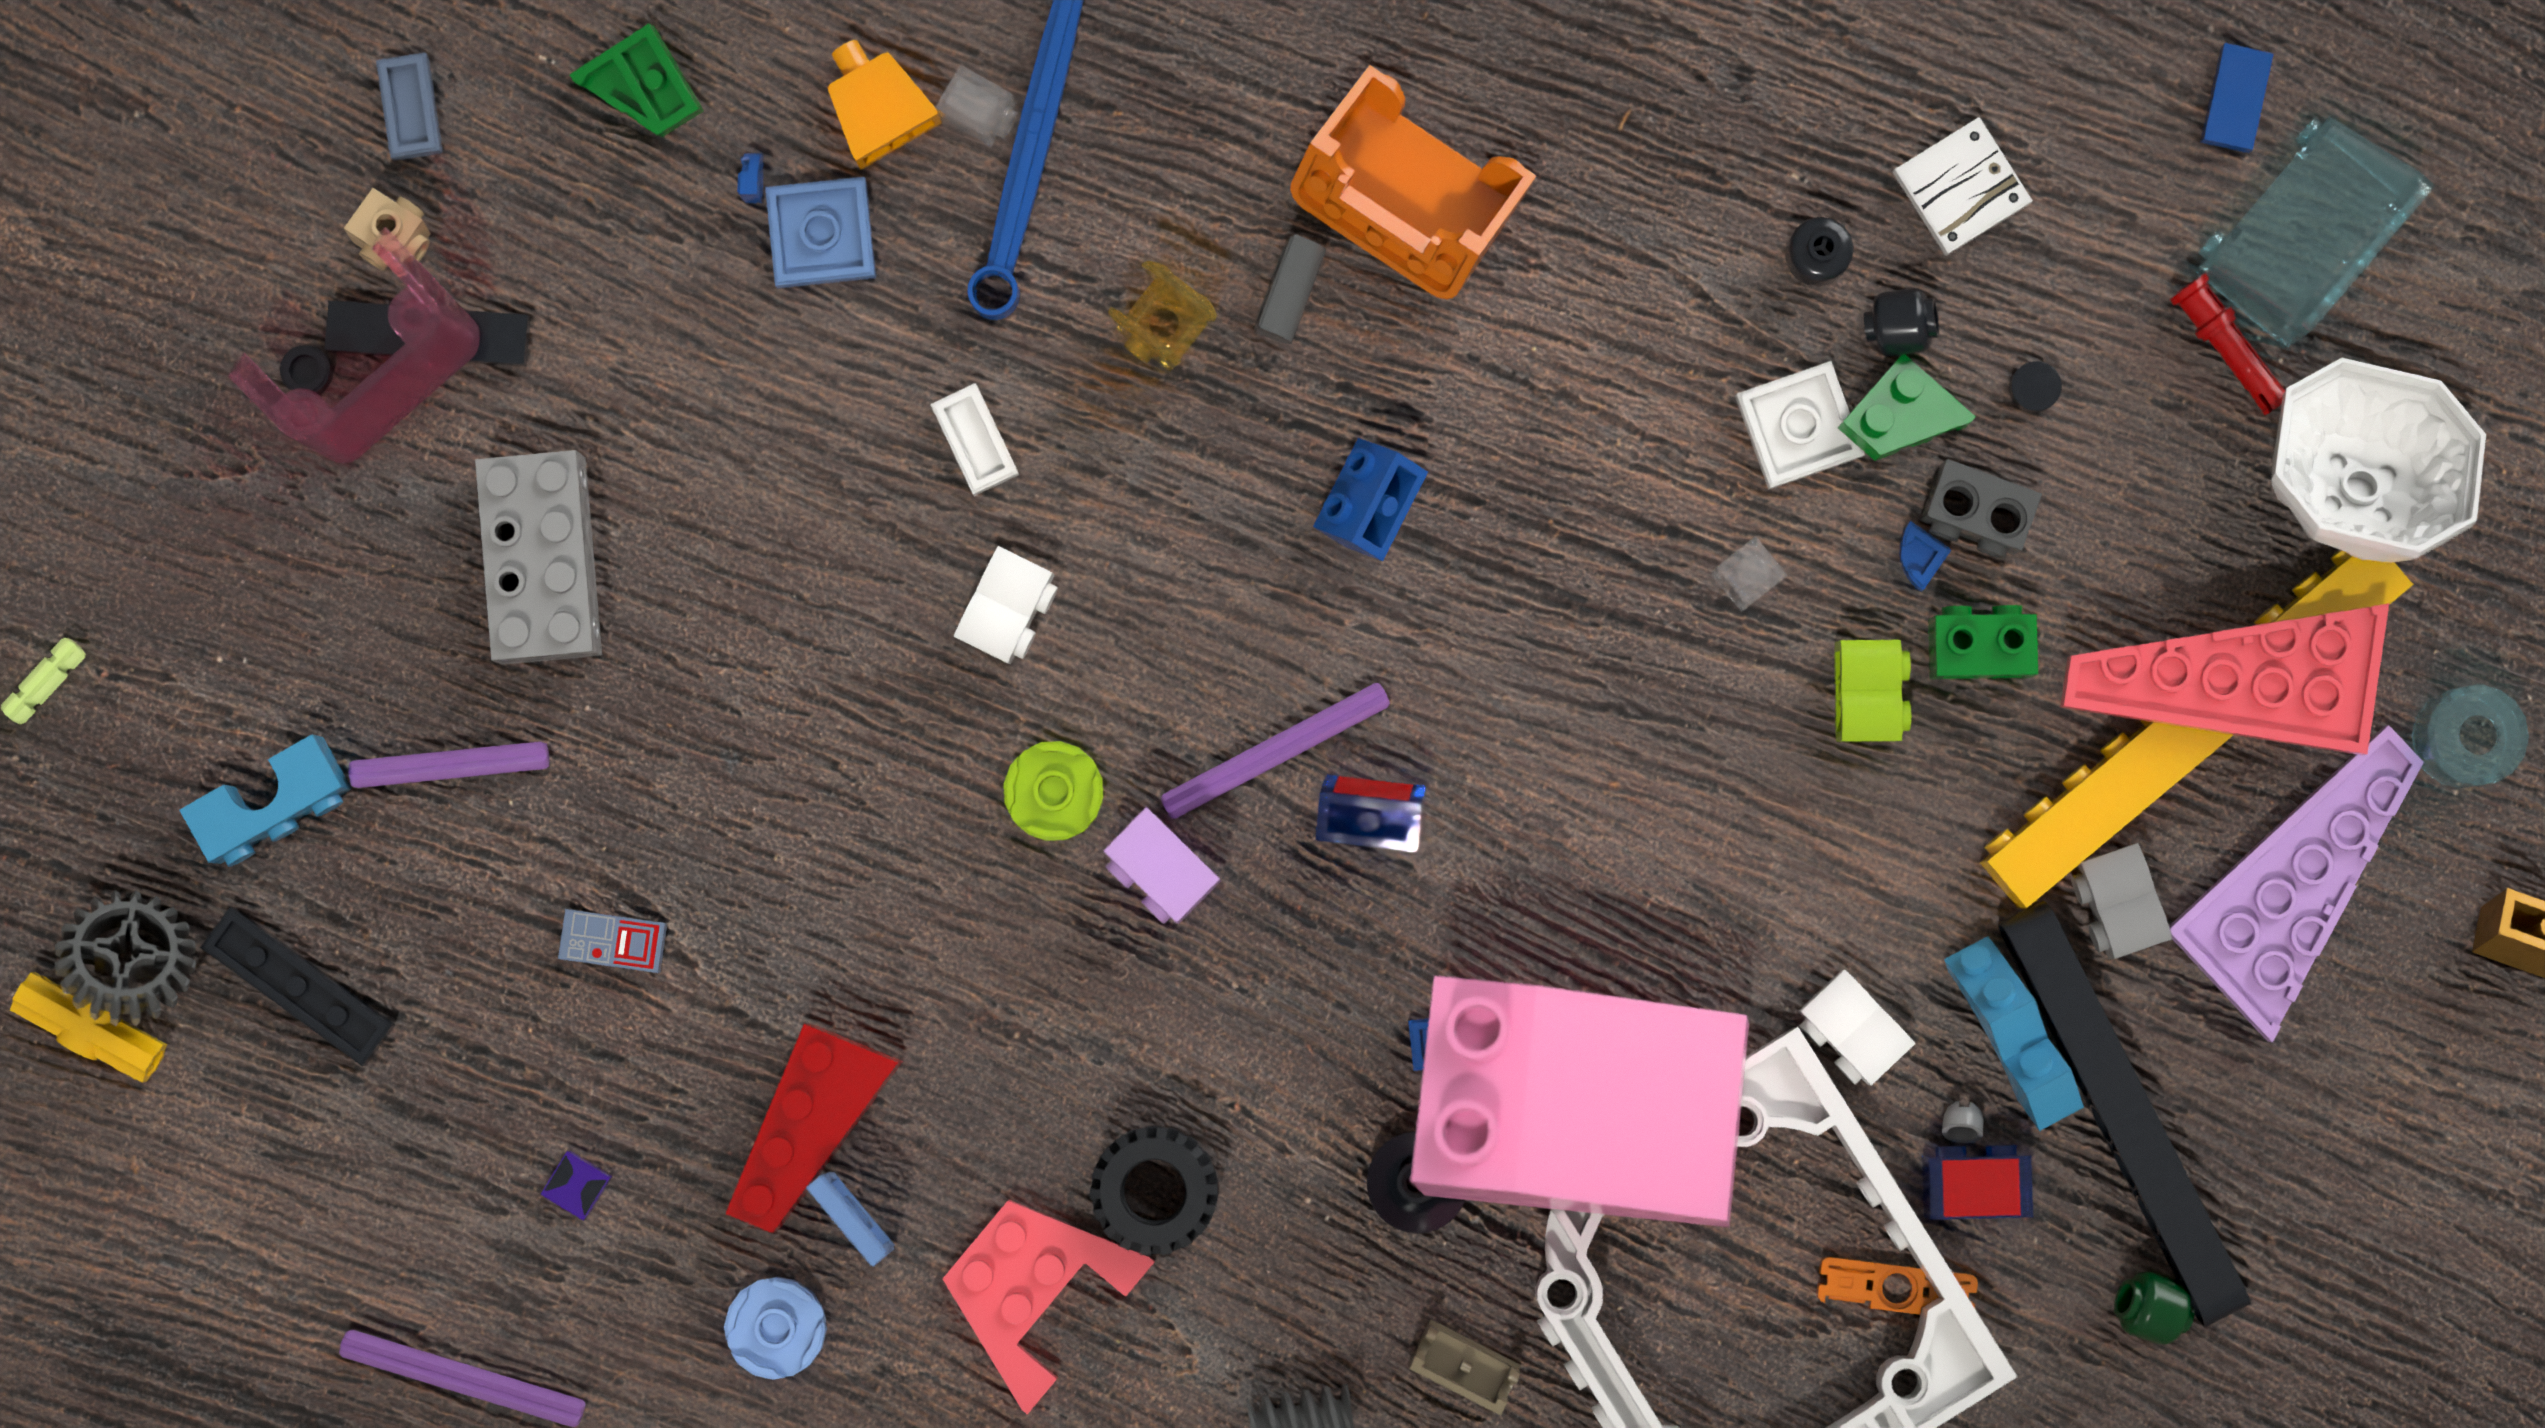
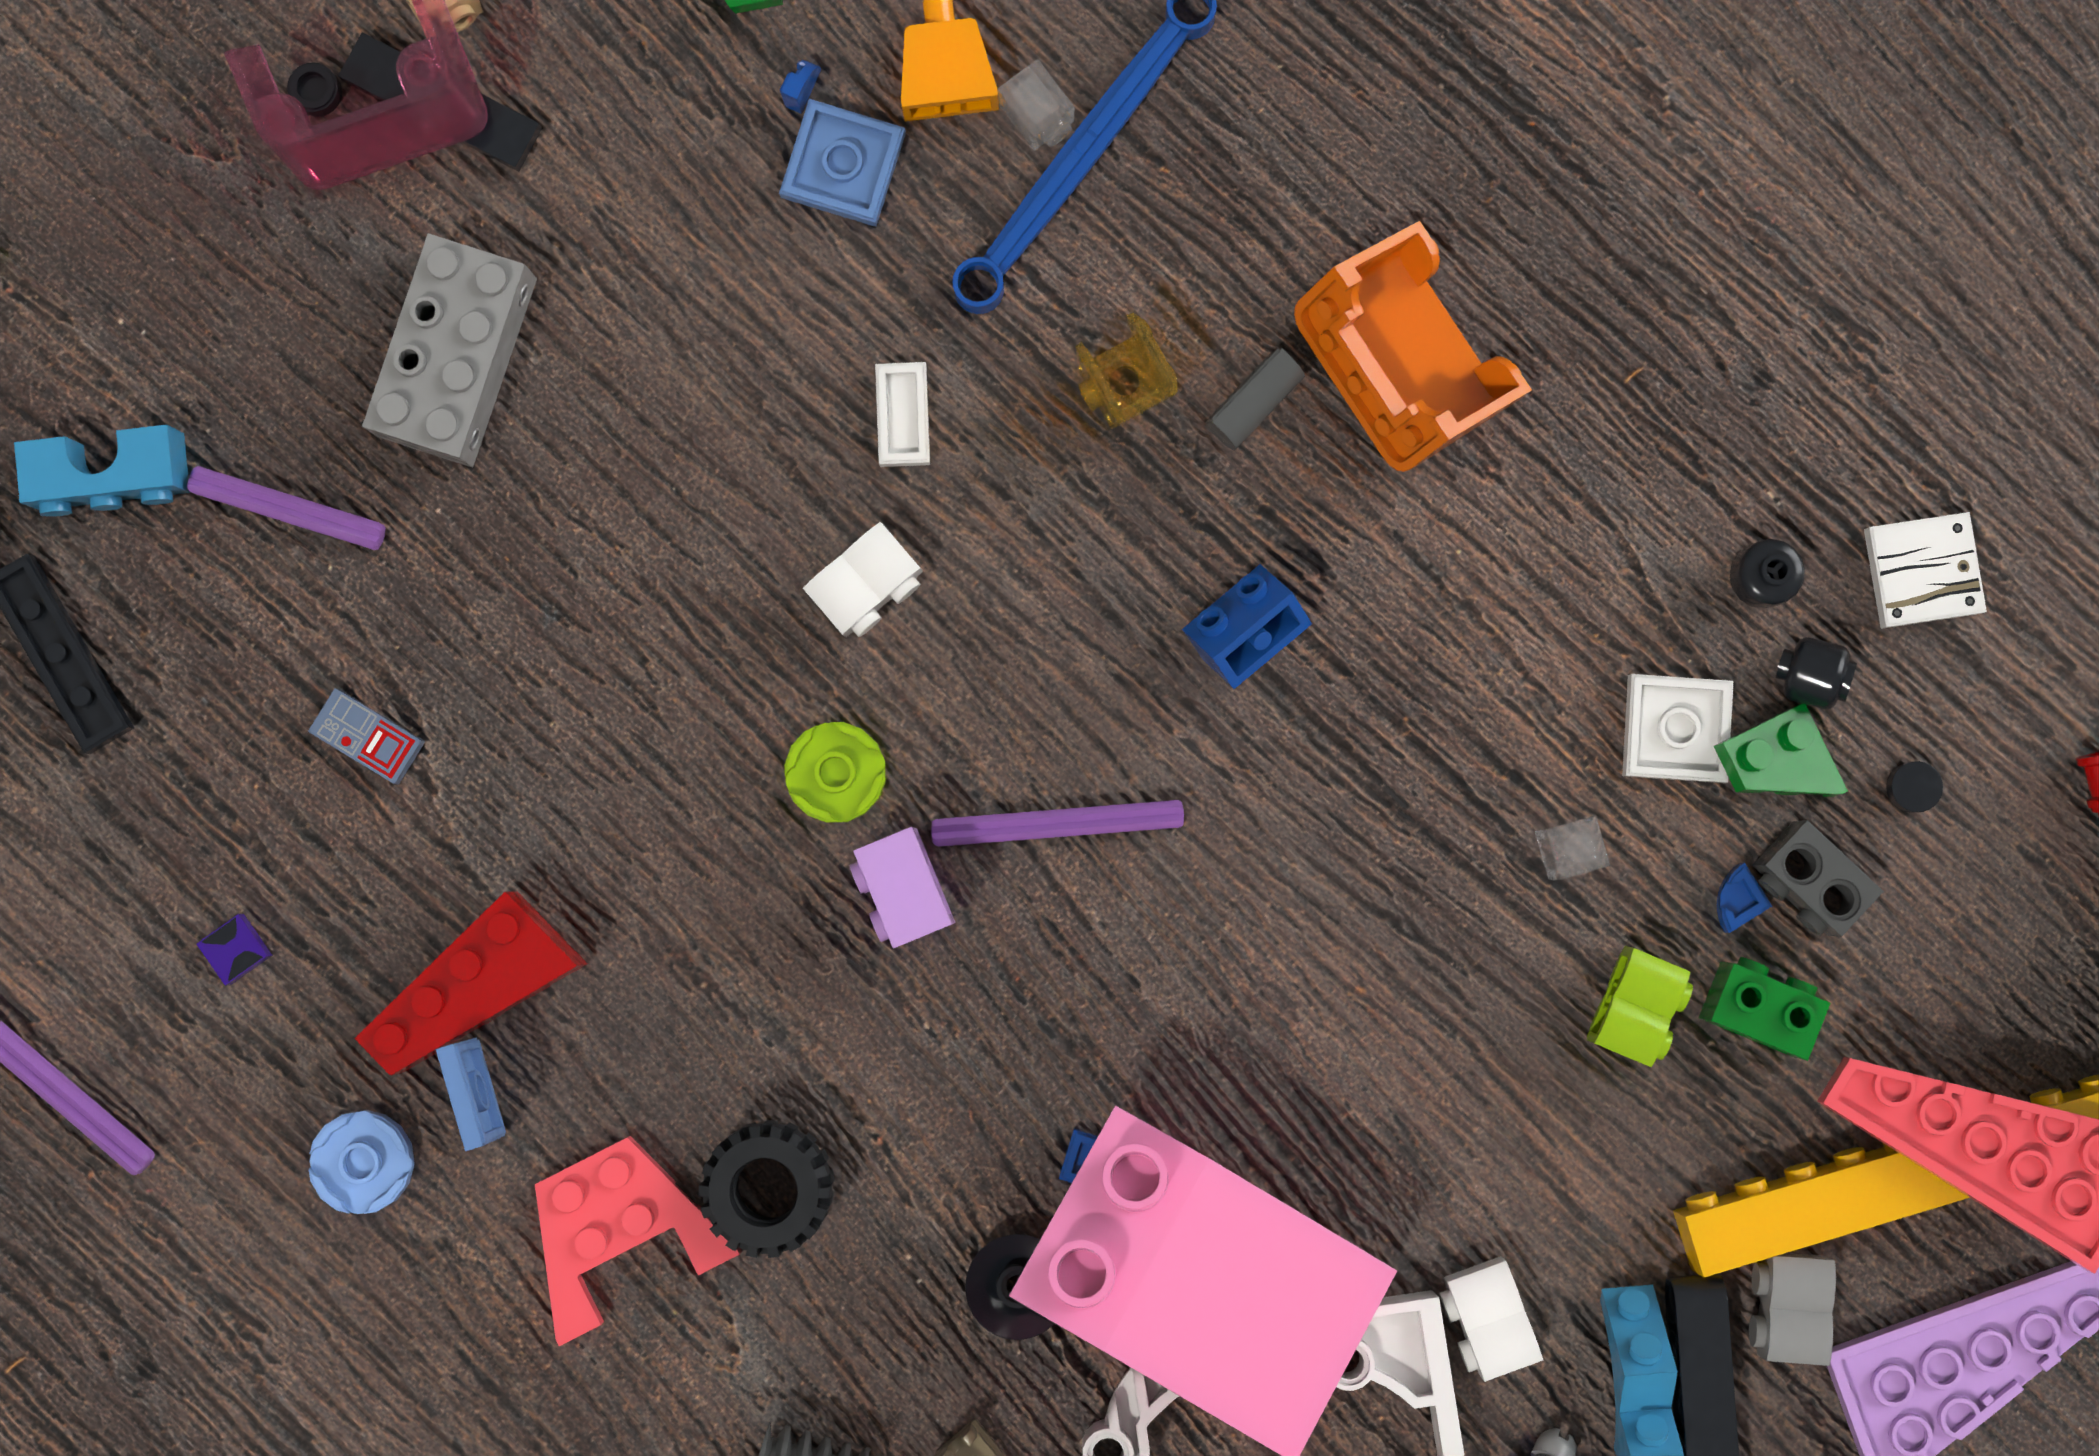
camera: 20 degrees right, 0 degrees up
(1370, 813) = (1121, 921): clear blue brick -> none

